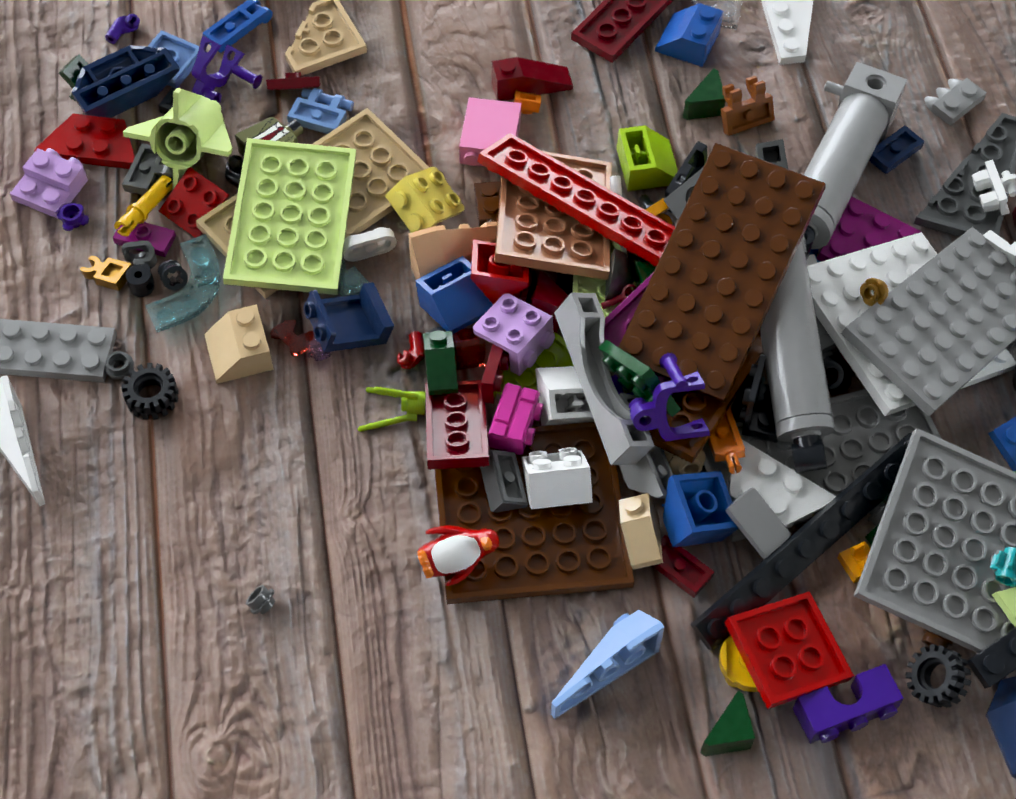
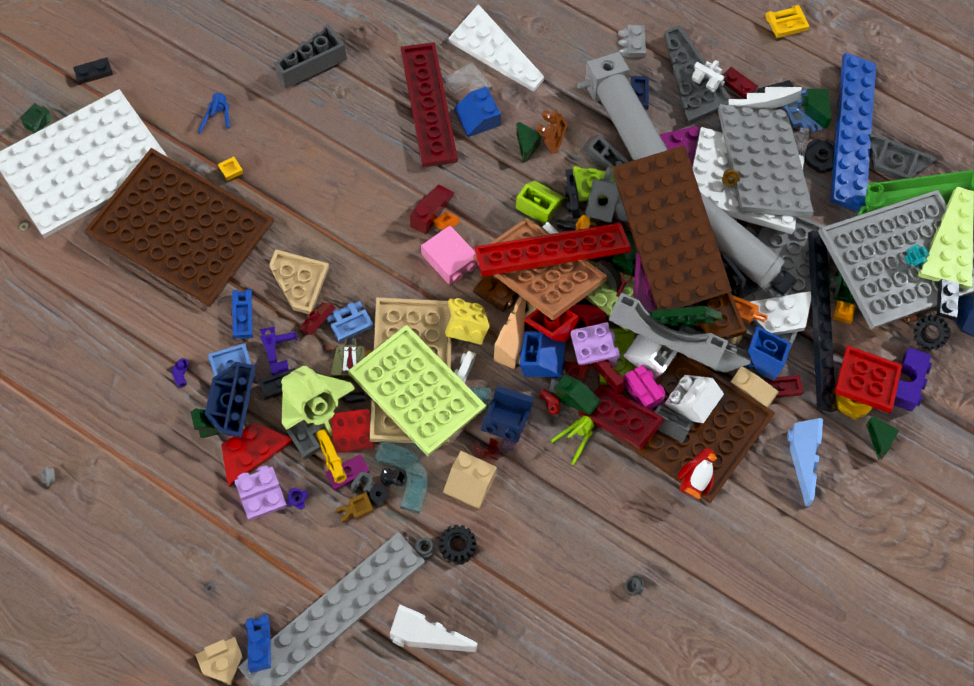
camera: 50 degrees left, 5 degrees up
(652, 414) = (718, 326): dark purple piece -> none
(758, 522) = (795, 334): light grey slope -> none

